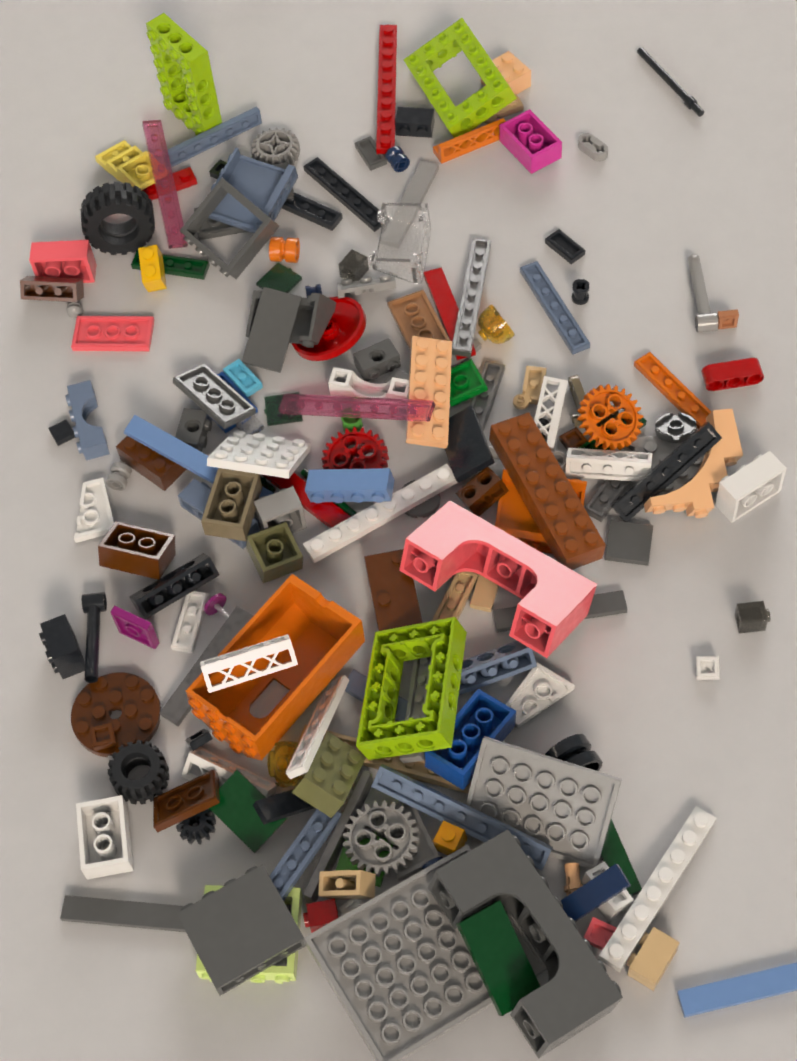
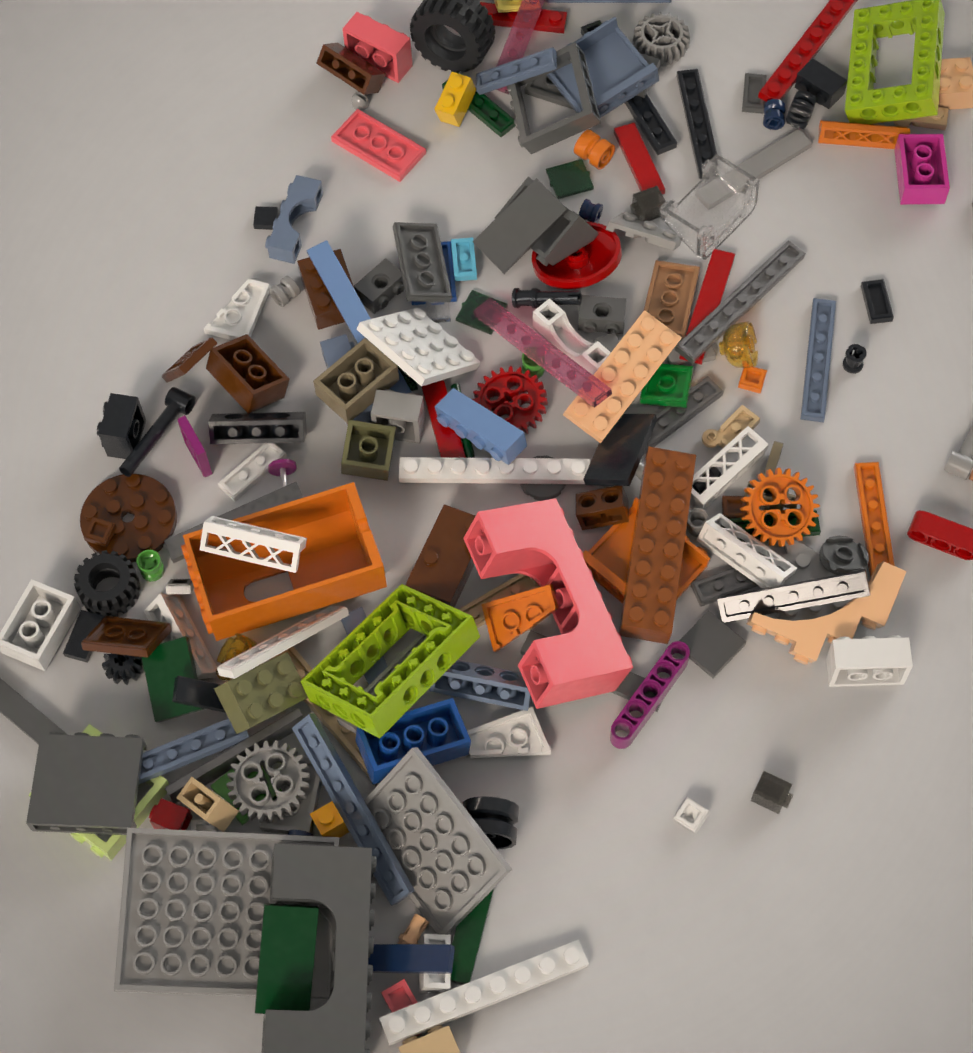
camera: 30 degrees right, 5 degrees up
(83, 565) = (189, 359): none -> reddish brown tile
(143, 822) = (84, 625): none -> black tile
(159, 734) = (147, 560): none -> bright green wheel
(187, 223) = (516, 71): none -> sand blue tile
(319, 239) = (638, 157): none -> red tile
(319, 375) = (536, 297): none -> black pin
(415, 145) = (801, 109): none -> black gear
(478, 601) = (517, 613): none -> orange wing
(518, 345) = (752, 379): none -> orange tile
(617, 610) = (646, 705): none -> magenta beam

